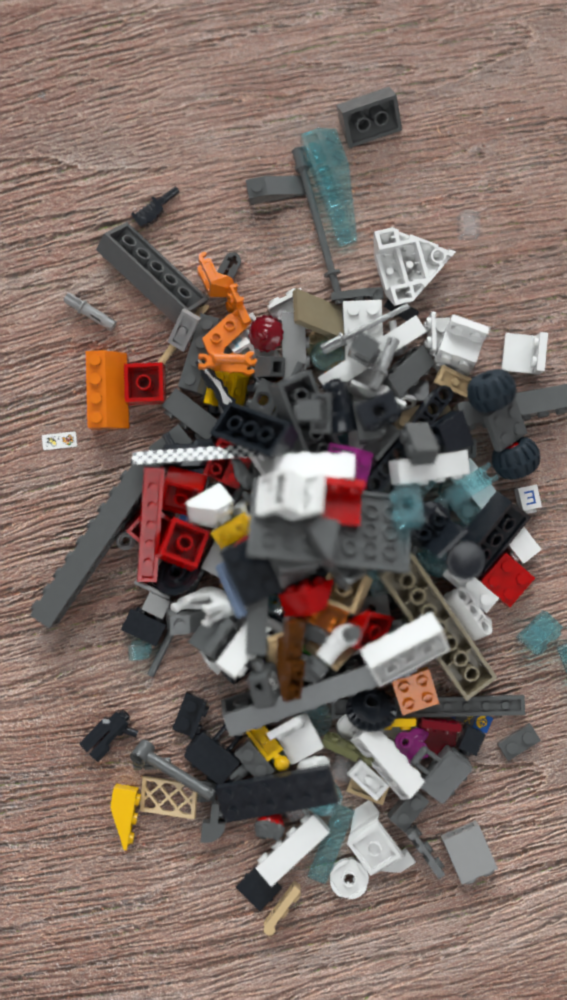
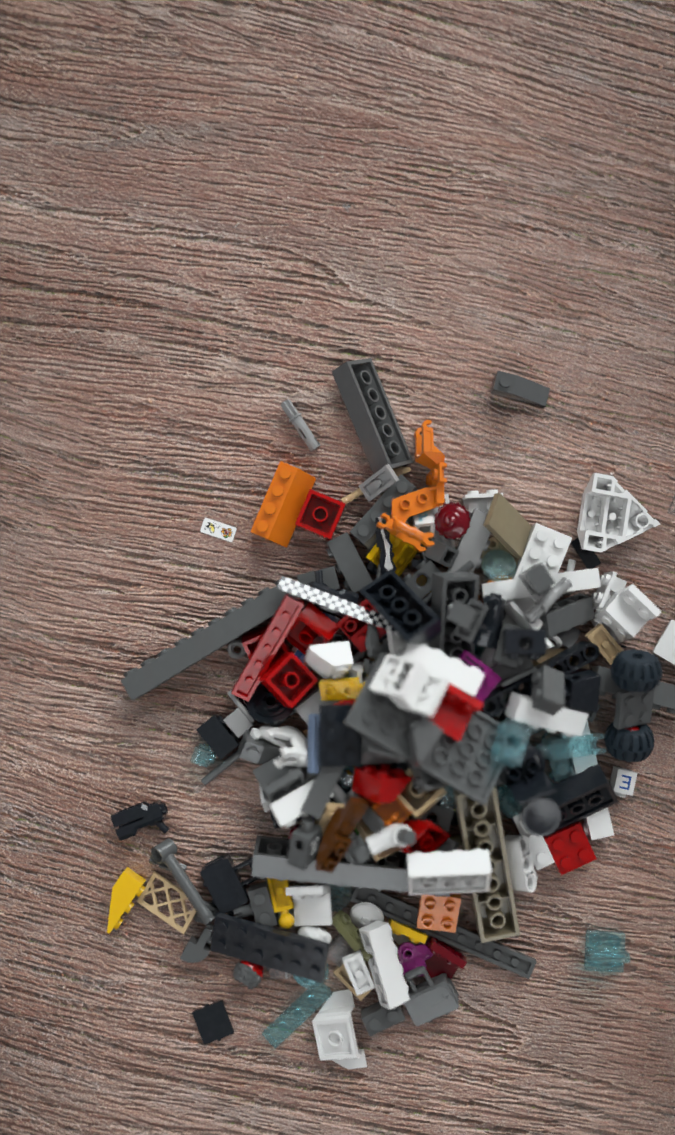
camera: 25 degrees right, 0 degrees up
(150, 213) = (400, 358): black piece -> none
(190, 715) = (223, 836): black bracket -> none
(225, 265) = (447, 447): dark grey beam -> none
(281, 908) = (225, 1051): tan plate -> none
(292, 848) = (260, 1002): white brick -> none
(302, 168) = (553, 381): dark grey bar -> none
(332, 179) = (577, 405): clear light blue wedge -> none
(341, 340) = (518, 558): light grey piece -> none
(346, 889) = (309, 1058): white plate -> none
(357, 295) = (551, 522): dark grey hinge -> none
(369, 117) = (637, 363): dark grey slope -> none
(371, 718) = (386, 918): black gear -> none
(424, 847) = (381, 1060): dark grey wing -> none
(469, 852) = (420, 1081): light grey brick -> none
(470, 740) = (468, 979): black brick -> none
(479, 722) = (485, 968): sticker -> none
(518, 741) = (511, 1000): dark grey plate -> none
(540, 633) = (577, 910): clear light blue brick -> none

